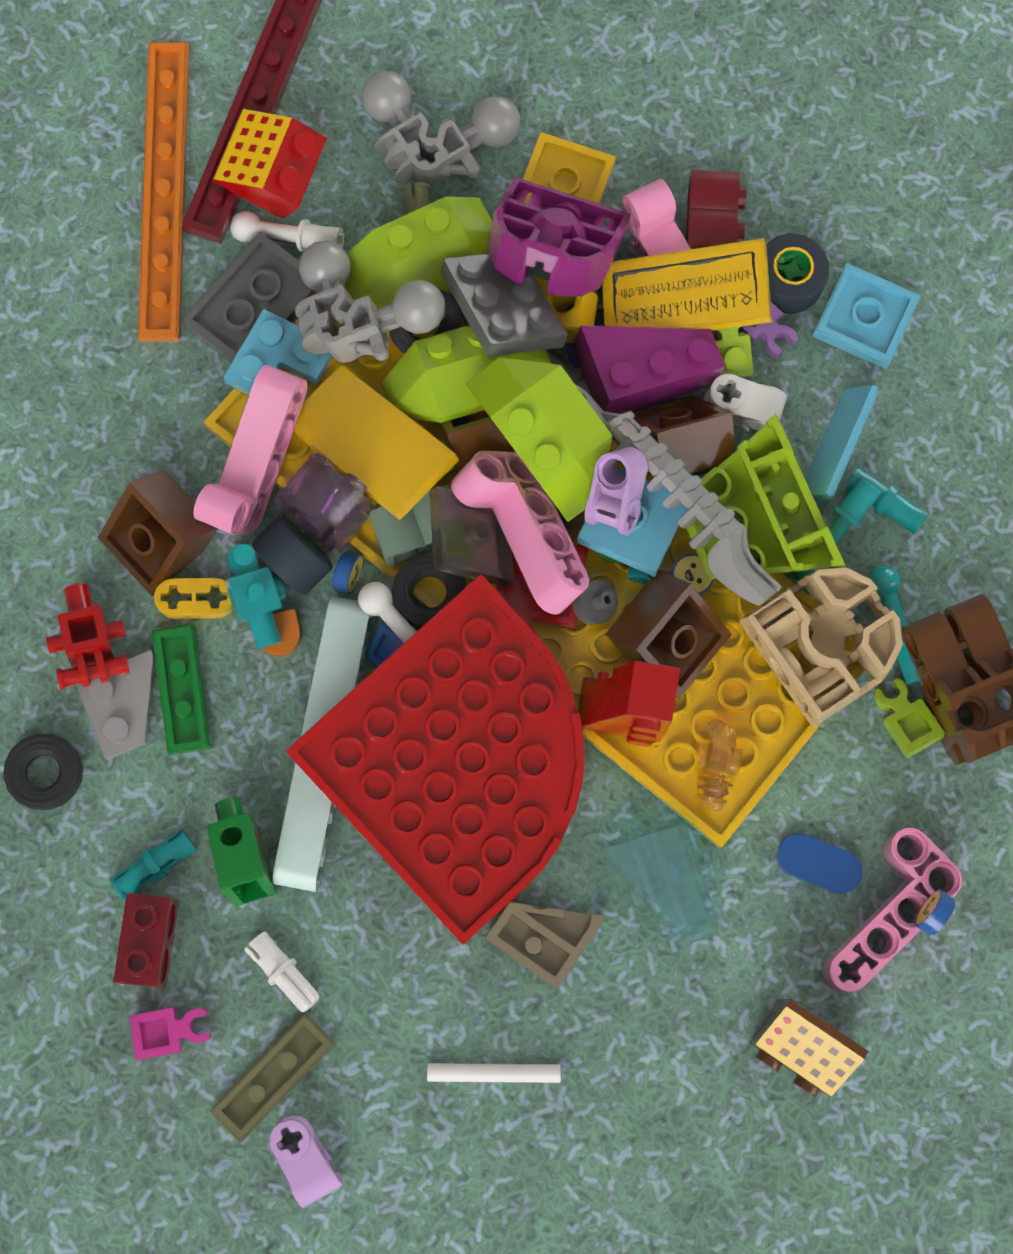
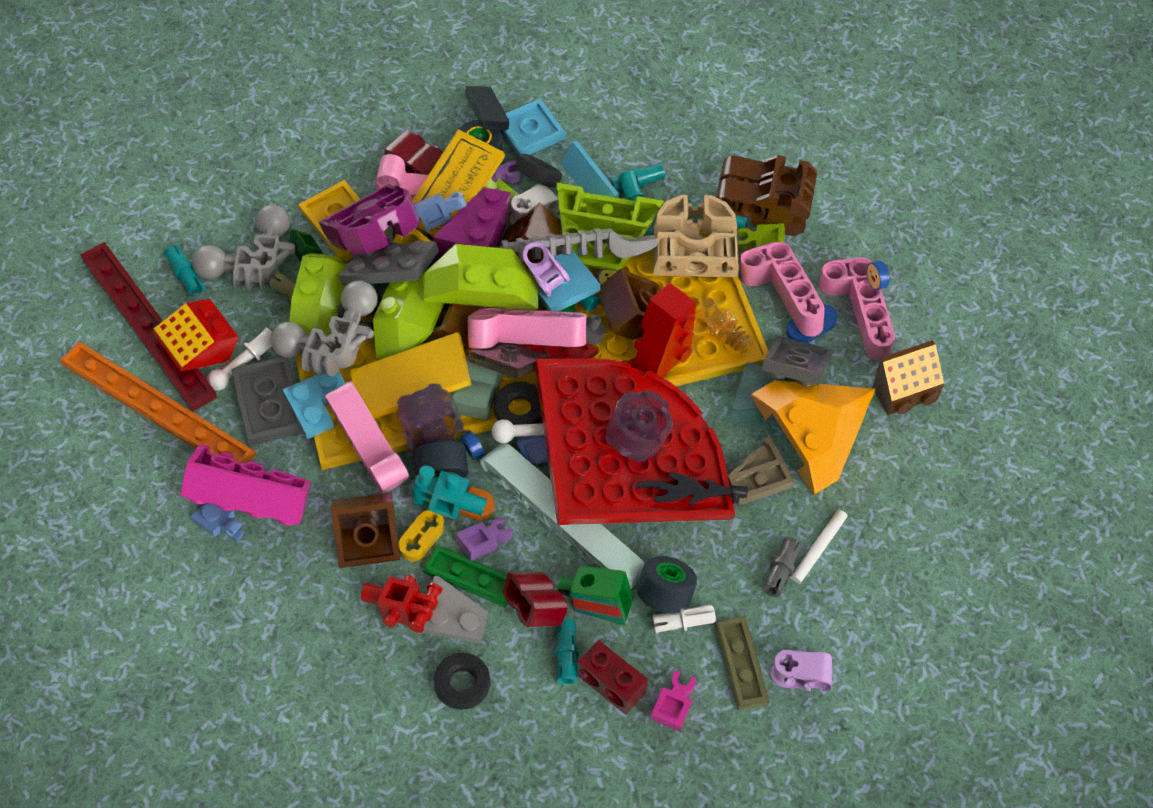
camera: 55 degrees left, 20 degrees down
(66, 360) = (214, 520): none -> medium blue plate
(110, 360) = (244, 487): none -> dark pink wedge
(182, 788) = (534, 599): none -> dark red brick
(229, 667) = (481, 540): none -> medium lavender plate
(288, 928) = (666, 584): none -> black wheel
(356, 76) = (183, 270): none -> teal pin
(431, 1046) = (782, 567): none -> dark grey pin
(448, 870) = (690, 487): none -> black piece
(492, 776) = (639, 425): none -> clear purple brick
(493, 181) = (303, 243): none -> dark green slope
(629, 301) = (436, 211): none -> medium blue plate
(656, 966) = (818, 424): none -> light orange wedge
(731, 887) = (797, 361): none -> dark grey plate
(785, 377) = (538, 170): none -> black tyre
(843, 806) = (780, 266): none -> bright pink beam
(850, 243) = (487, 108): none -> black tile

